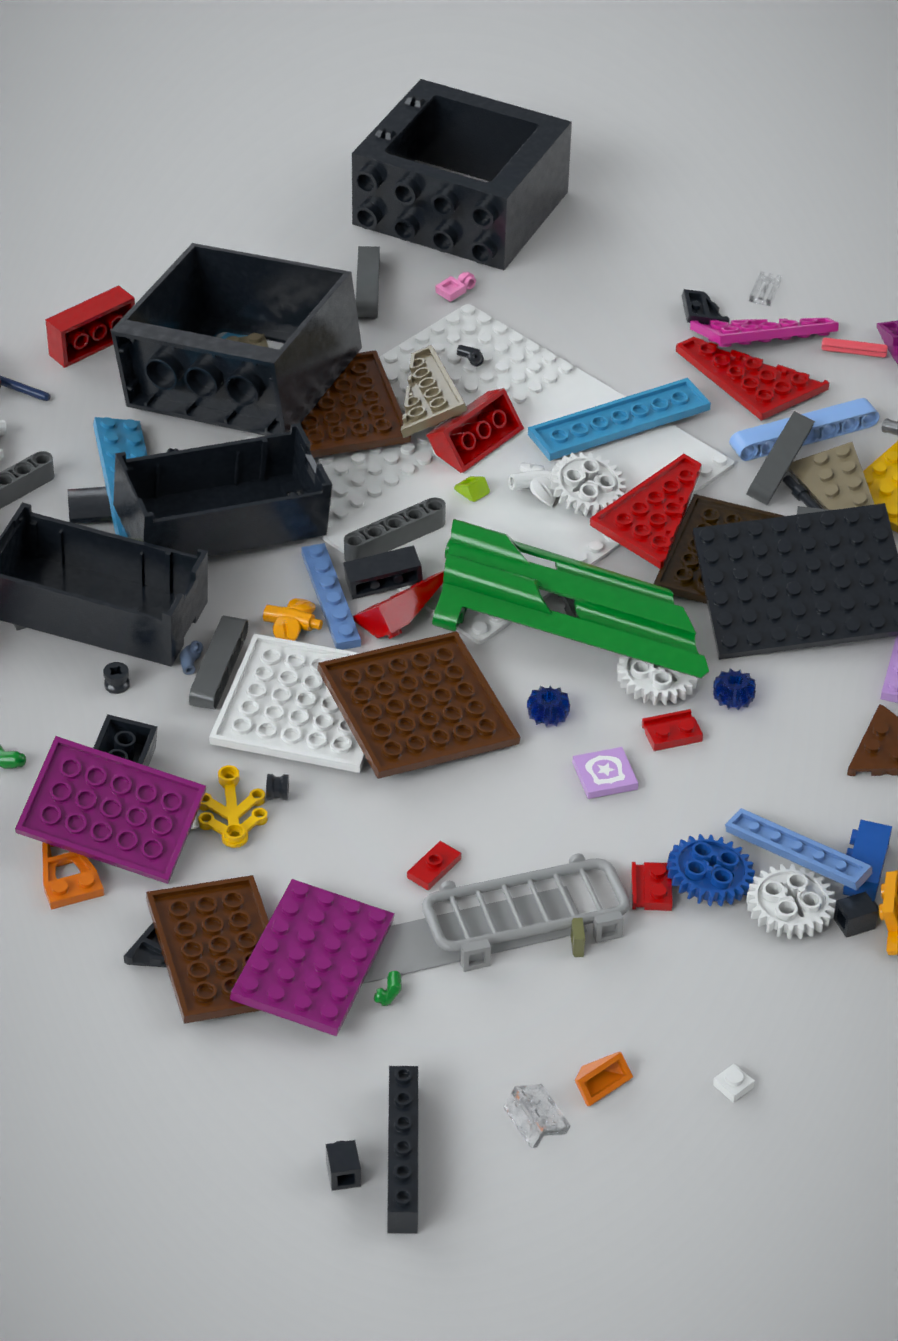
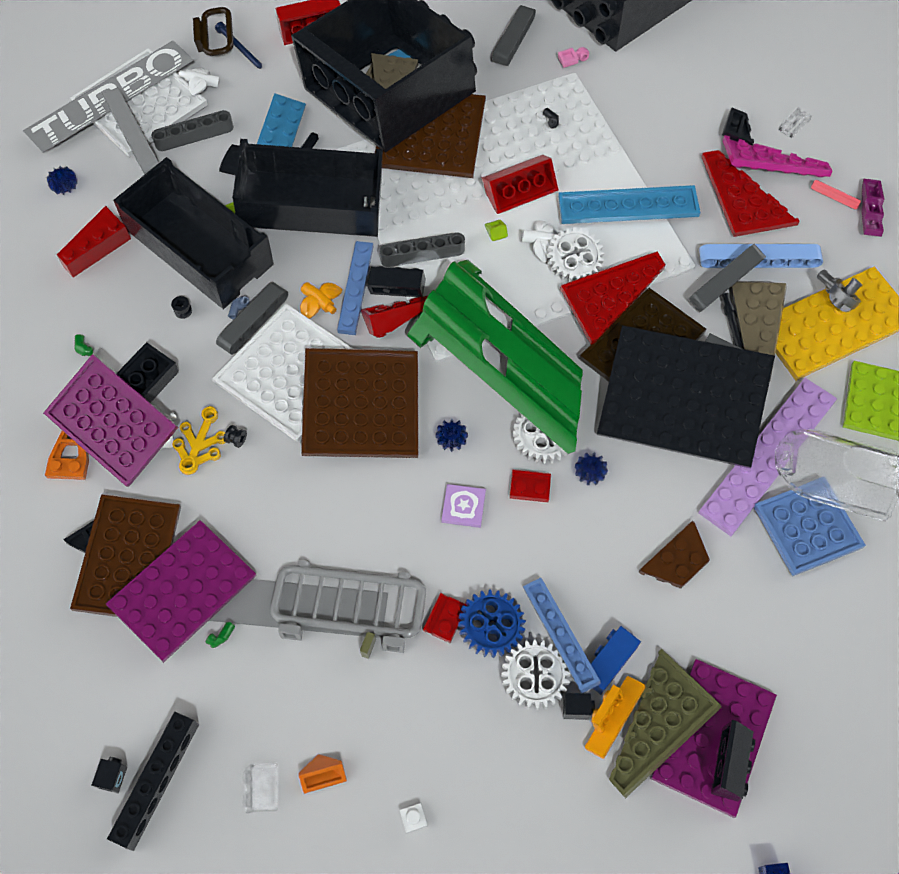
camera: 25 degrees right, 20 degrees up
(430, 393) = (502, 146): dark tan wing -> none
(434, 865) = (306, 540): red plate -> none

